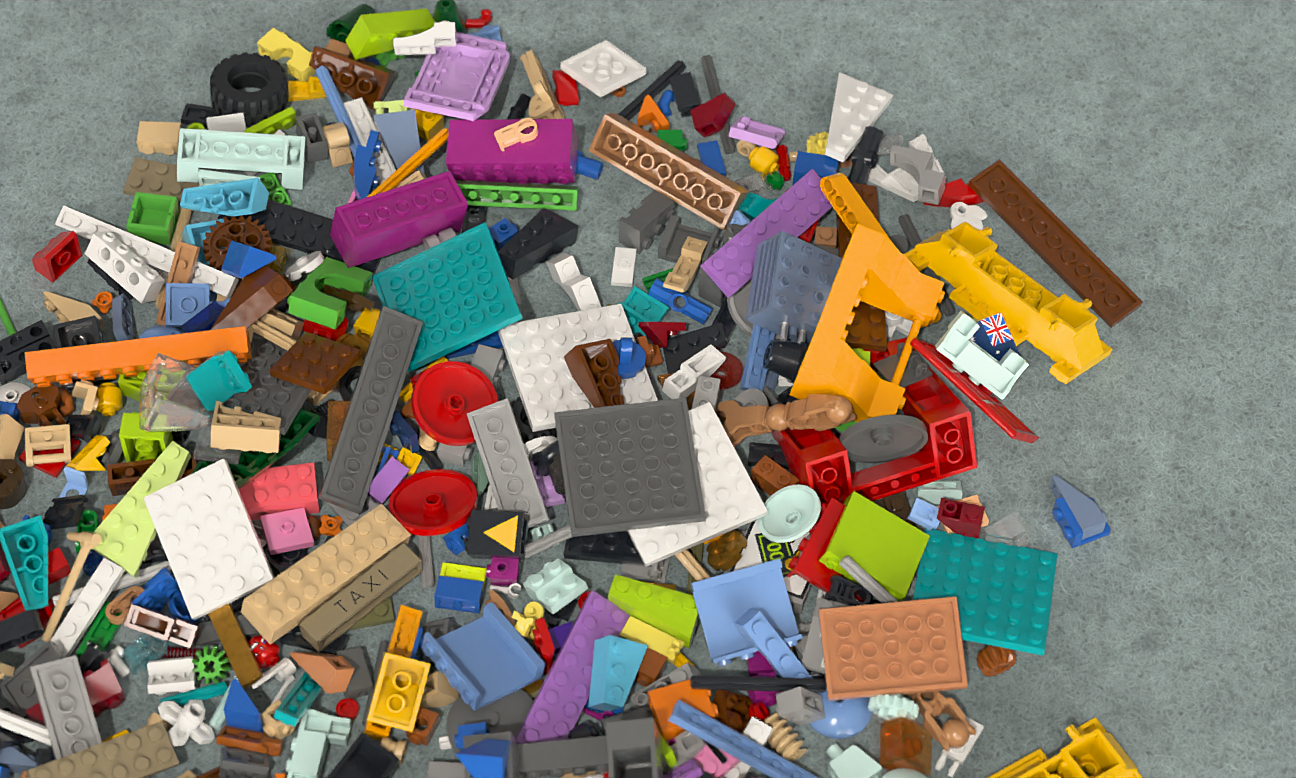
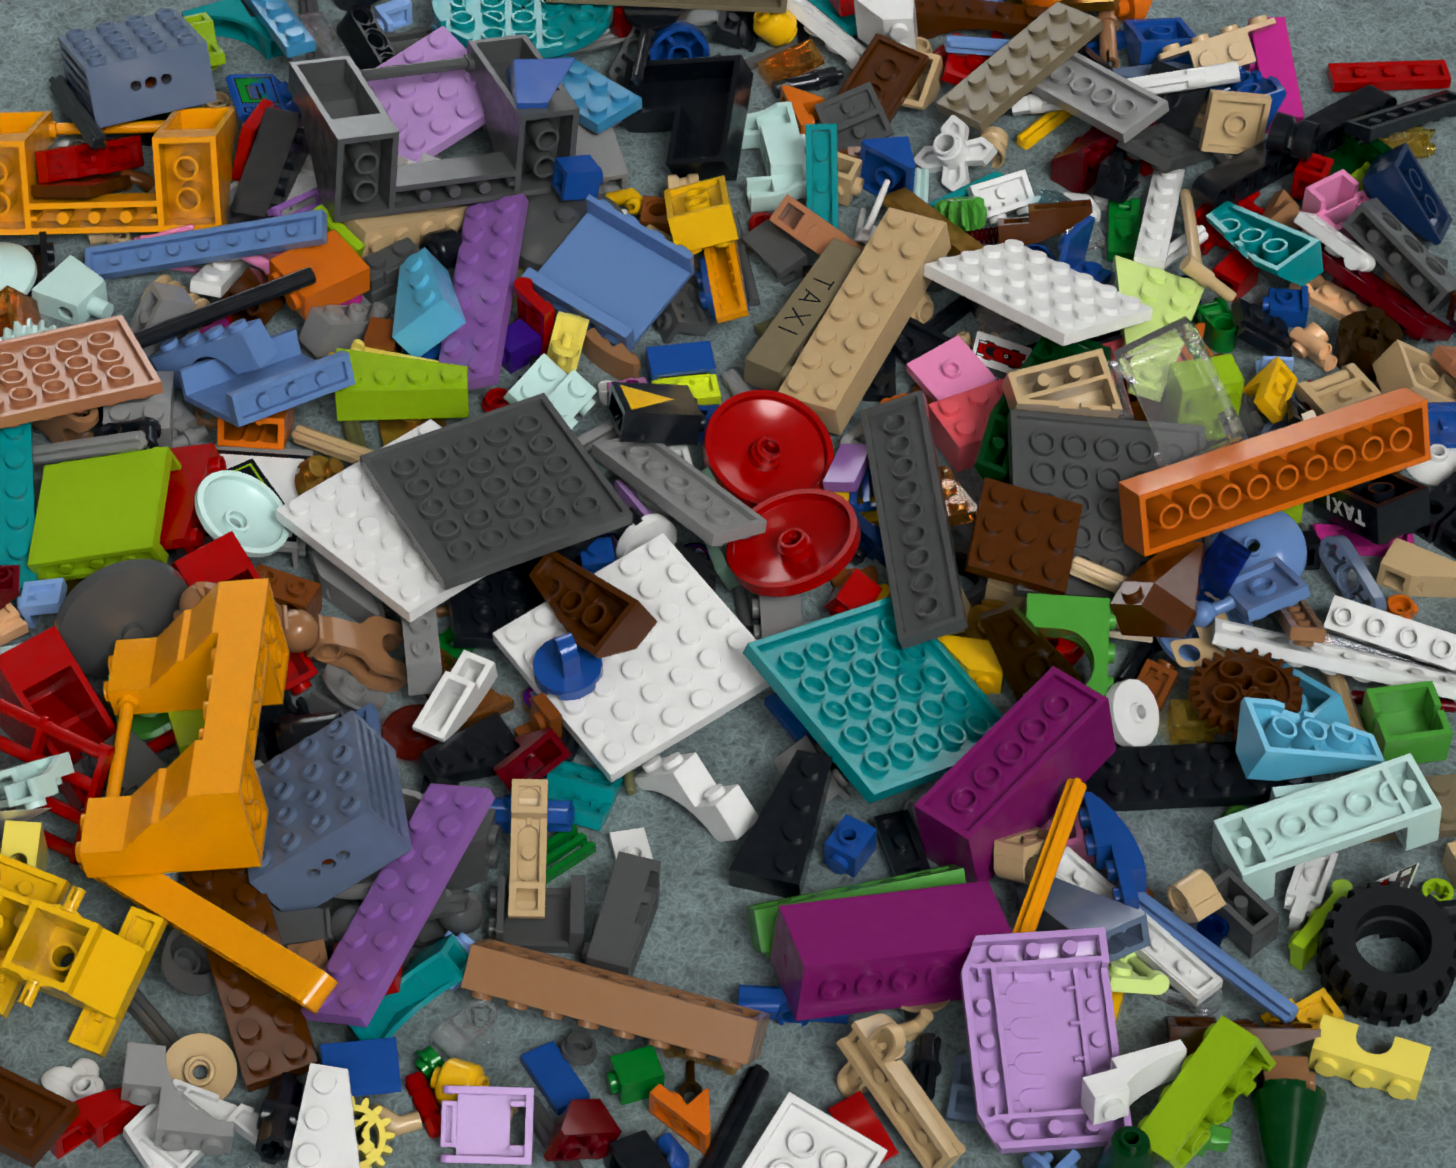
camera: 160 degrees right, 10 degrees down
(36, 500) = (1313, 343): none -> light nougat plate
(122, 604) = (1107, 241): medium nougat plate -> none
(218, 379) = (1139, 450): teal bracket -> none
(244, 260) = (1204, 636): blue slope -> none
(432, 749) = (629, 198): none -> yellow arm
(503, 97) = (961, 1099): none -> sand blue slope
(512, 133) = (894, 922): light nougat piece -> none
(897, 204) = (205, 1051): none -> tan dish

